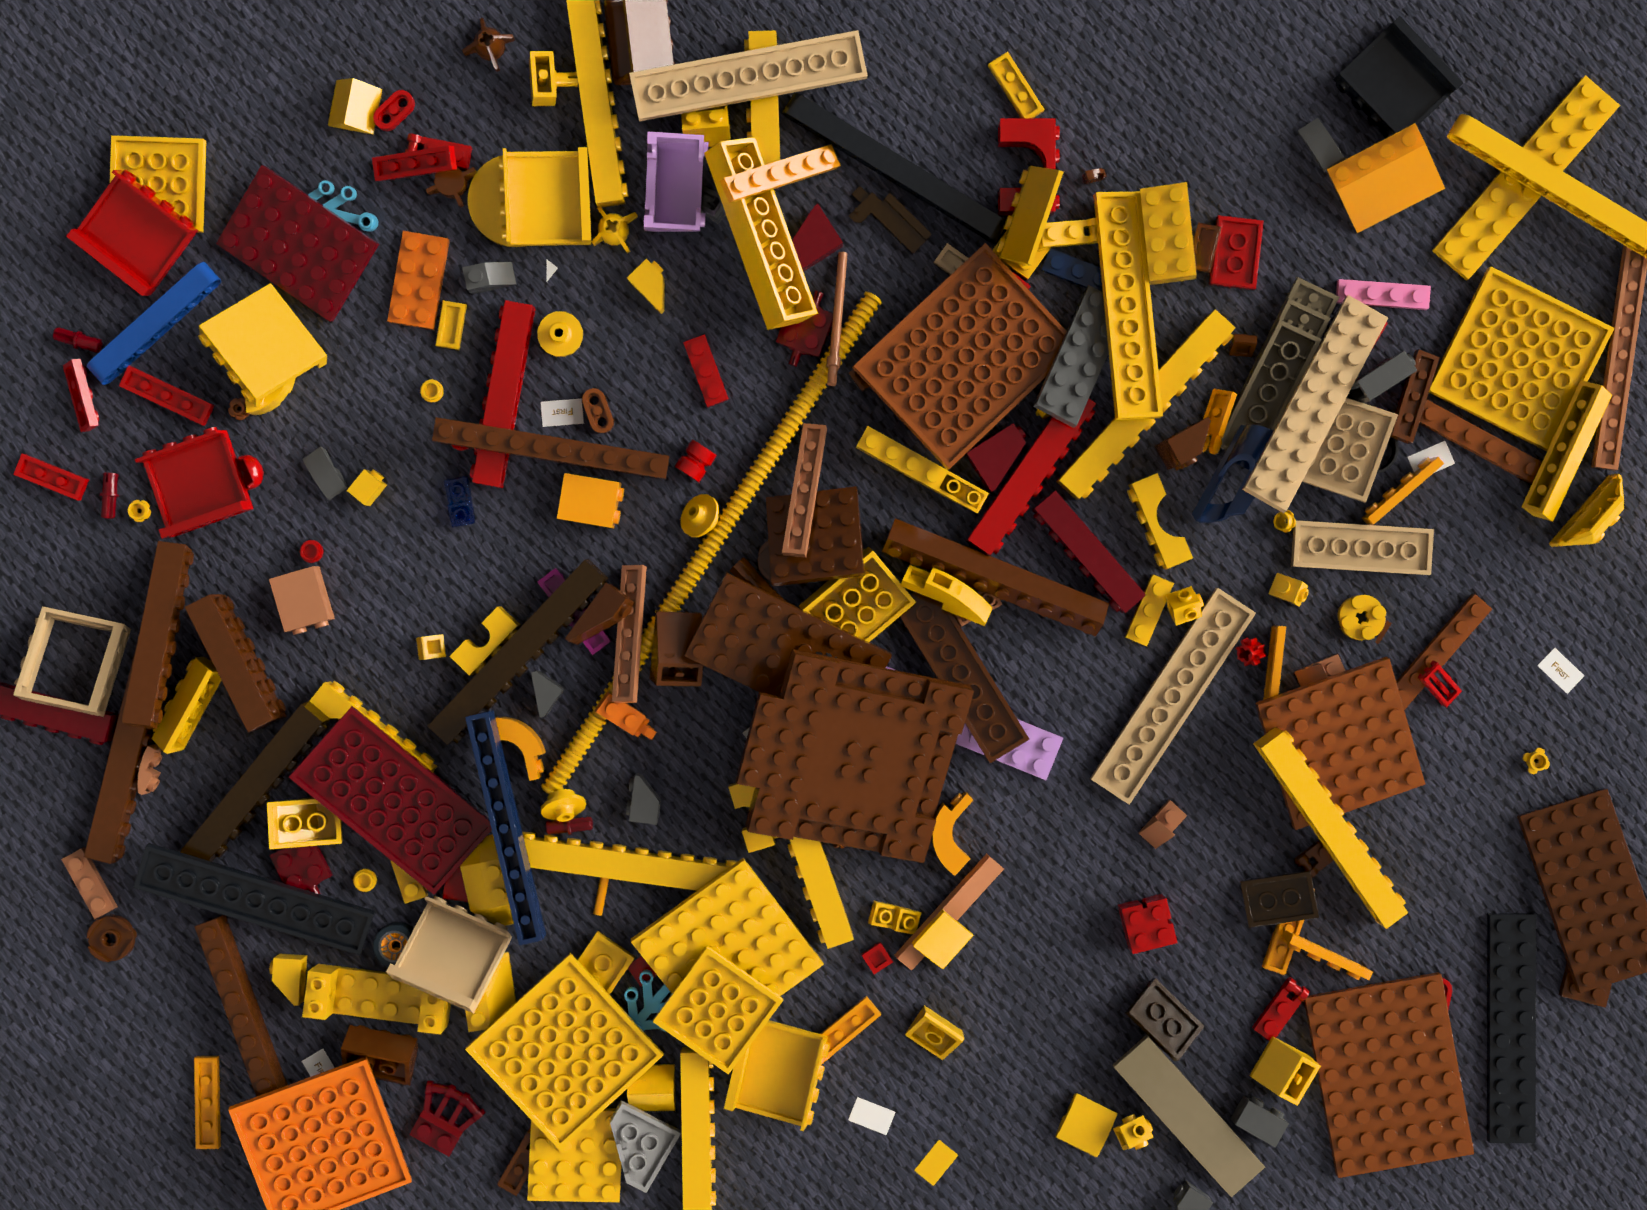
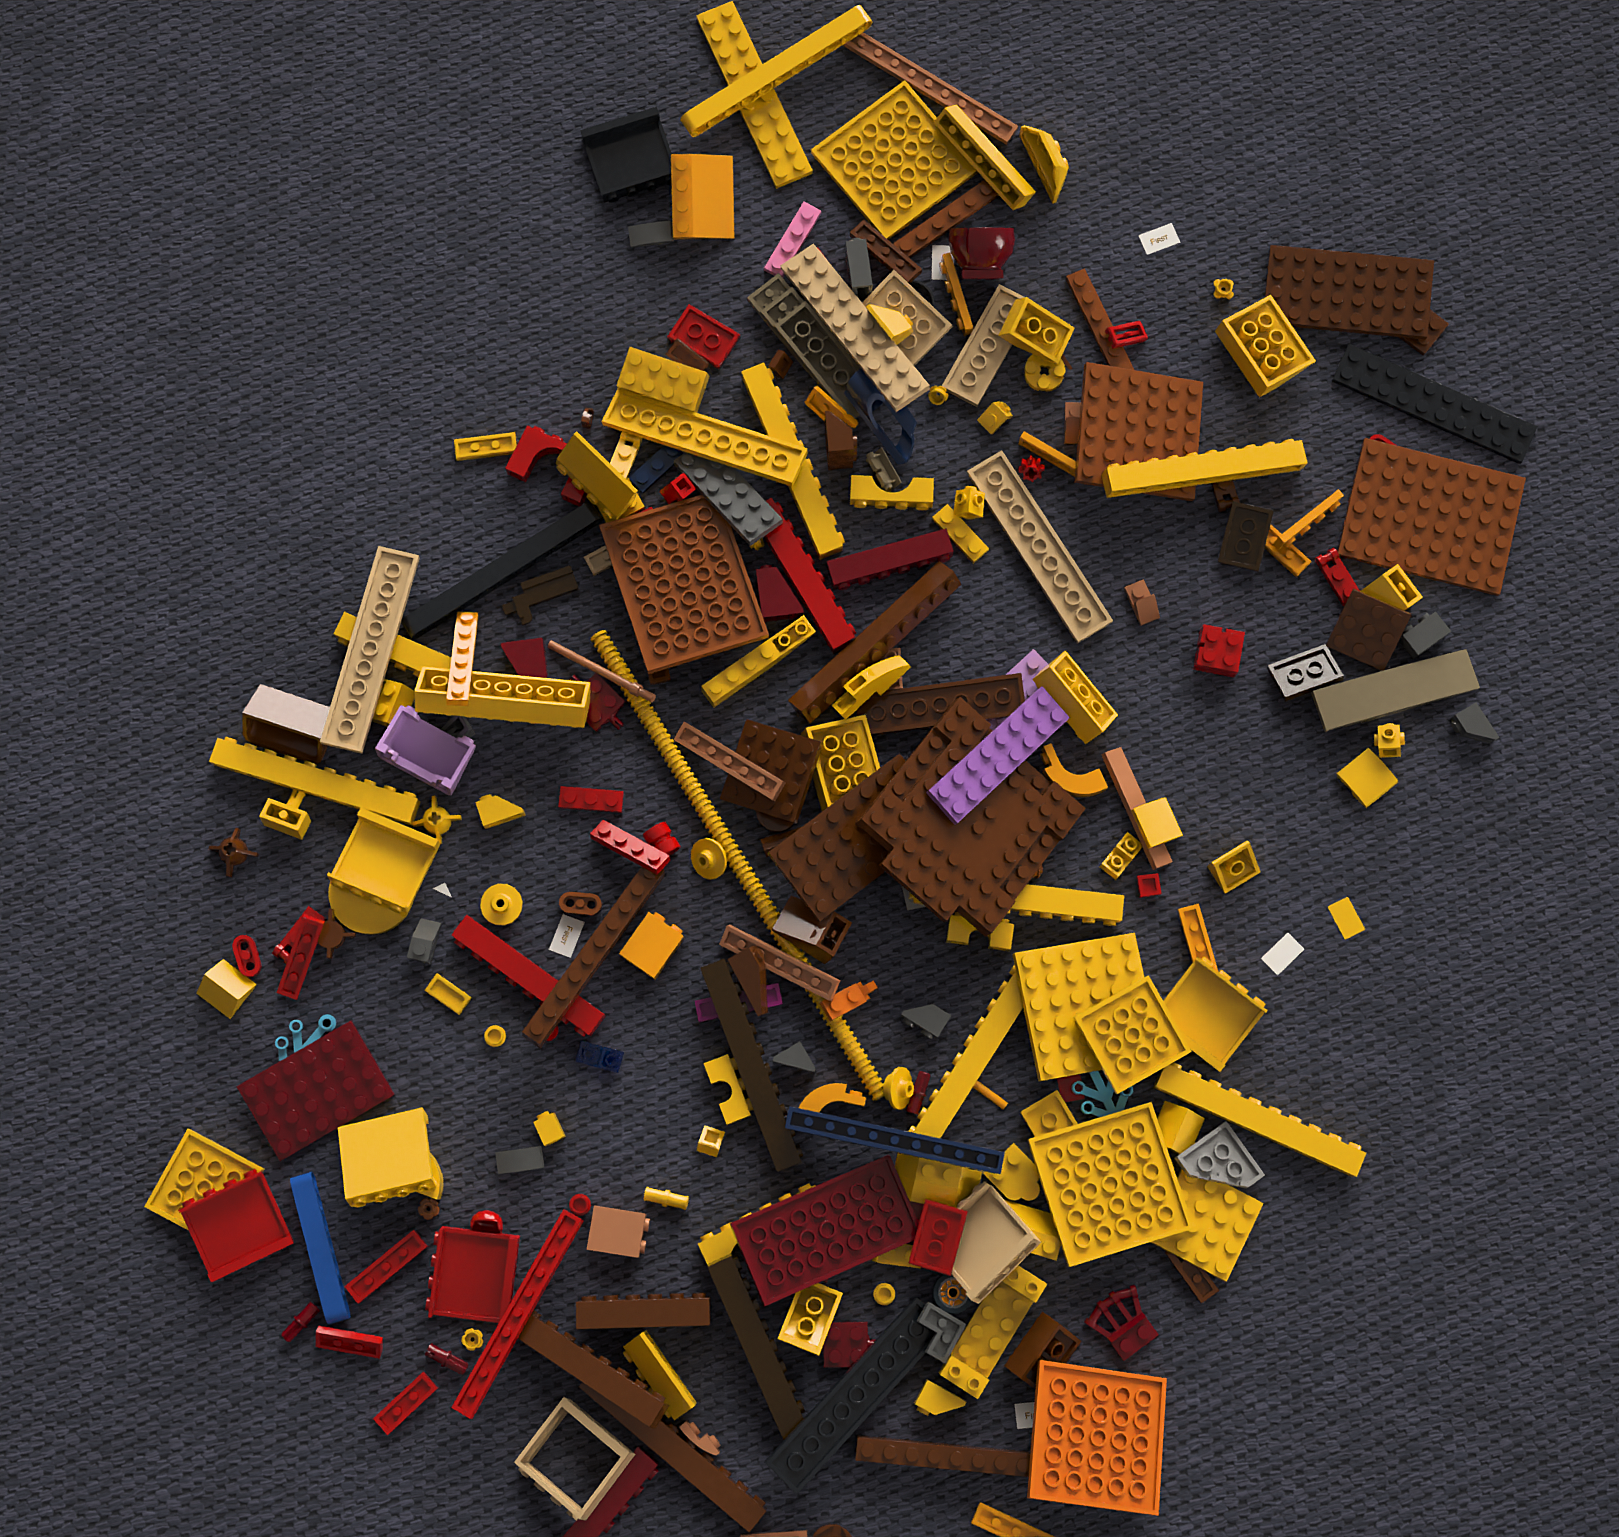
camera: 65 degrees left, 10 degrees down
(176, 543) = (517, 1314): none -> red plate
(355, 630) = (666, 1198): none -> yellow pin
(355, 956) = (946, 1330): none -> dark grey plate
(418, 280) = (397, 1003): orange plate -> none
(436, 910) = (938, 1237): none -> red tile
(536, 958) = (1017, 1176): none -> yellow plate
(673, 433) = (630, 847): none -> plate
(931, 756) = (997, 755): none -> medium lavender plate
(1031, 802) = (1076, 696): none -> yellow slope
(1060, 304) = (677, 489): none -> red brick
(1179, 504) = (884, 470): none -> dark tan hinge
(1238, 1064) = (1368, 629): none -> reddish brown plate
(1338, 439) = (892, 322): none -> yellow slope
(1400, 590) = (1036, 330): none -> yellow slope
(1460, 496) = (981, 251): none -> dark red plate
(1493, 830) = (1264, 345): none -> yellow slope

